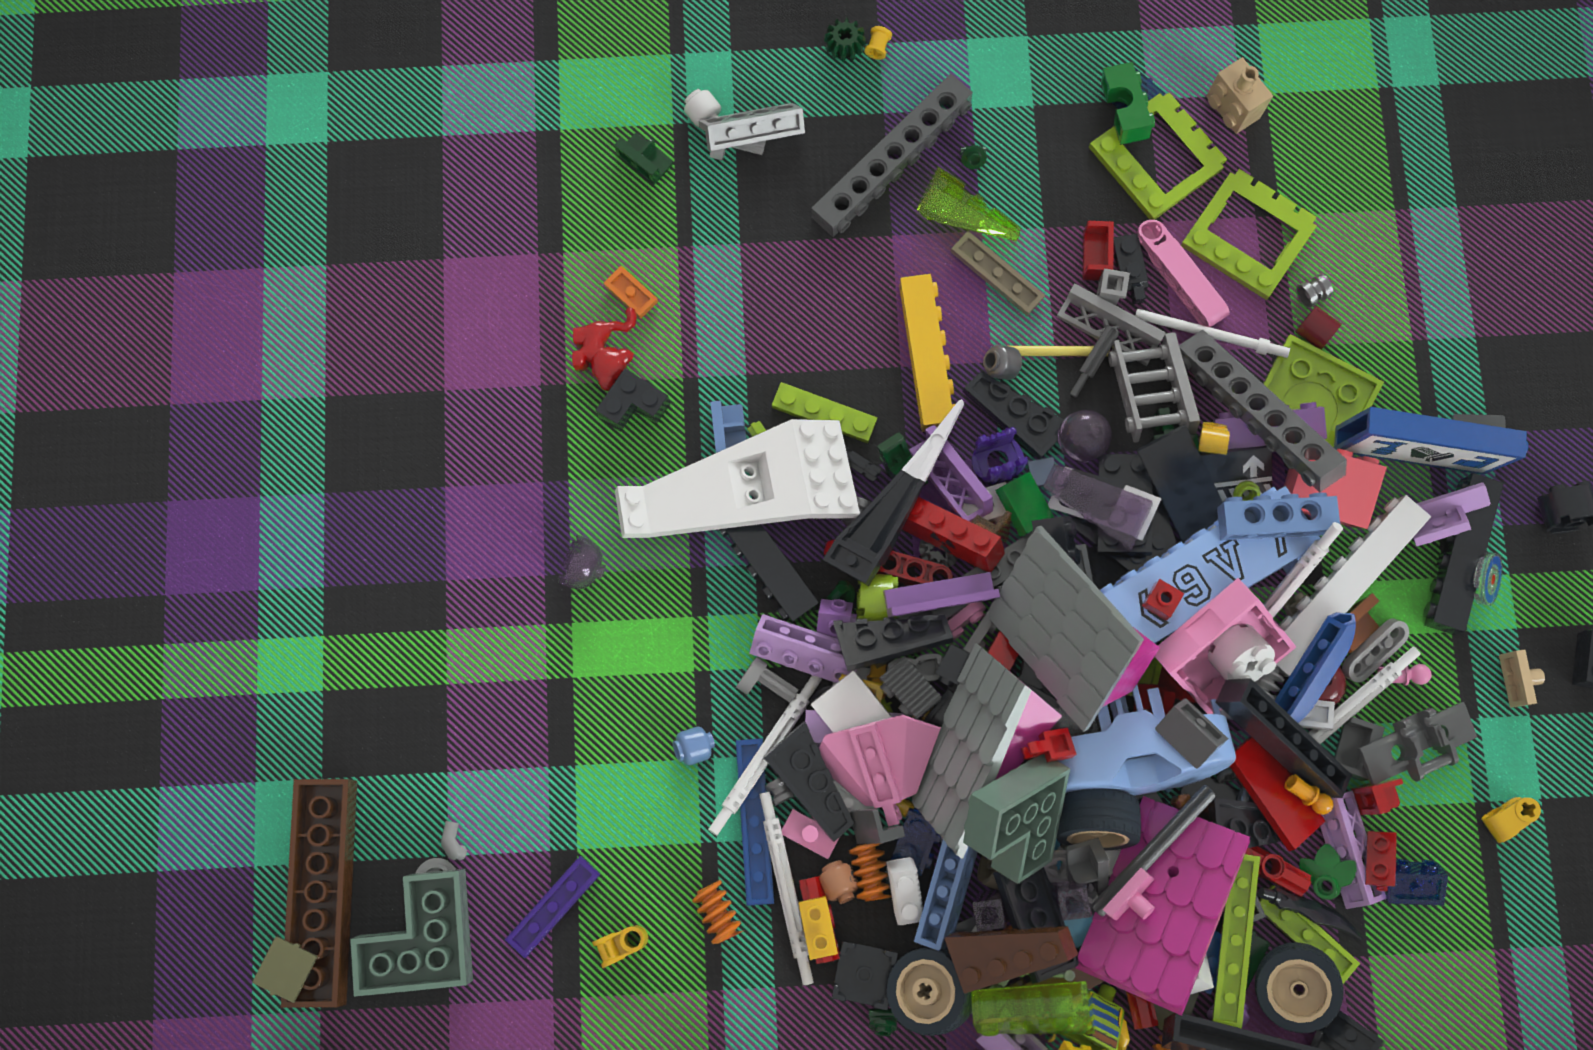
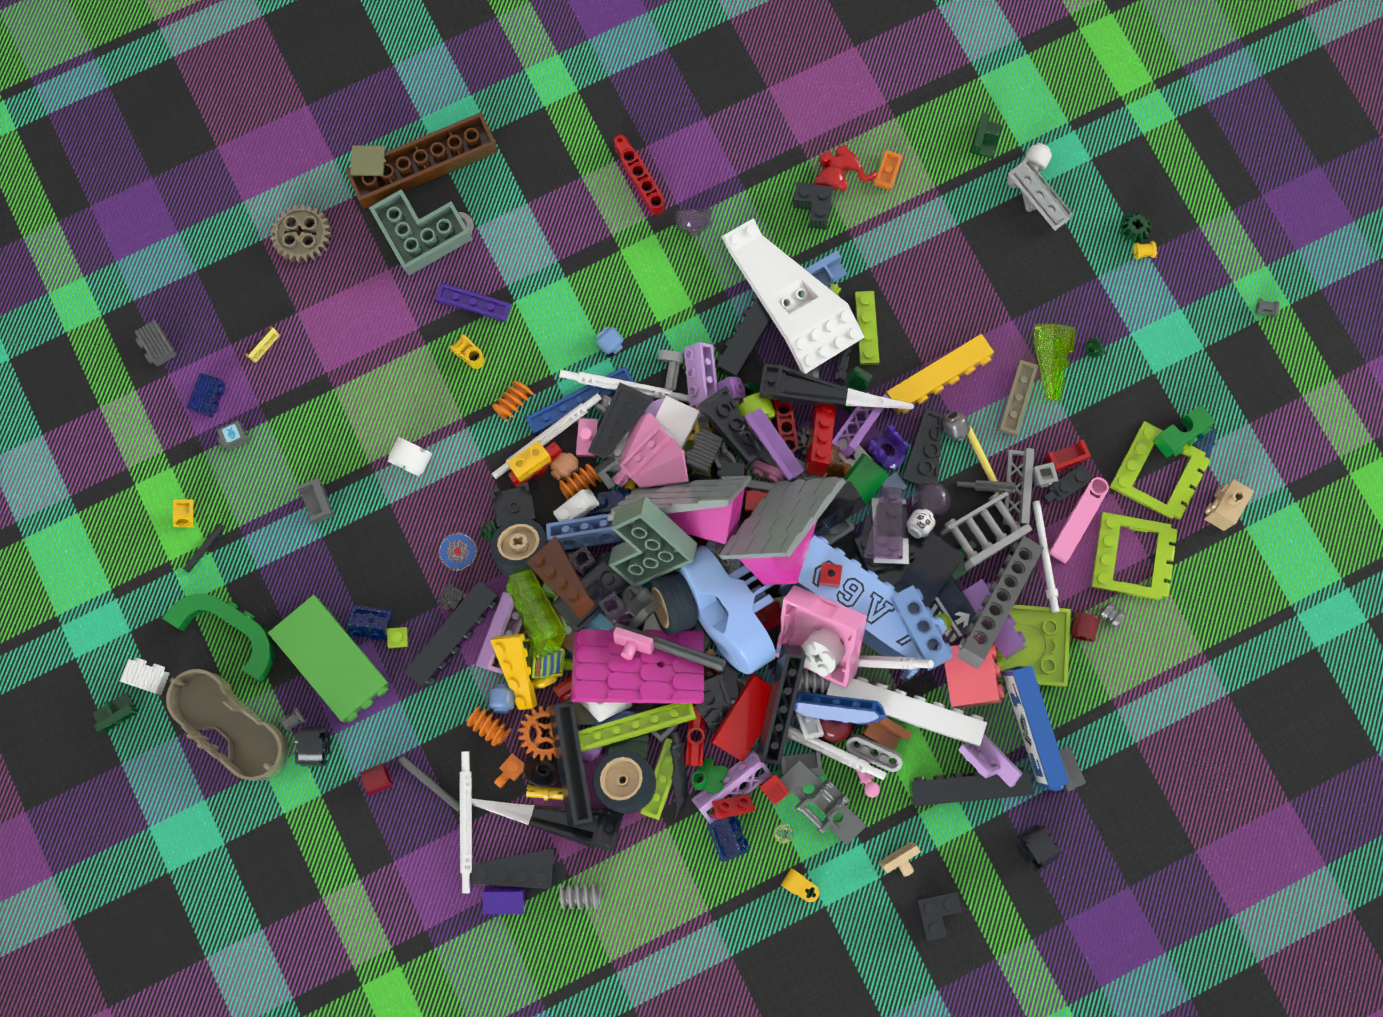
camera: 65 degrees right, 0 degrees up
(438, 610) = (624, 150): none -> red piece
(450, 844) = (484, 223): light grey arm -> none
(948, 92) = (1132, 310): dark grey brick -> none
(1053, 744) = (704, 545): red plate -> none
(1114, 460) = (920, 523): none -> white head
(1190, 733) = (751, 627): dark grey panel -> none
(1214, 438) = (965, 578): yellow piece -> none
(1310, 795) = (752, 751): light orange pin -> none
(1432, 809) = (783, 833): none -> clear light blue tile
(1488, 578) = (959, 809): clear tile -> none

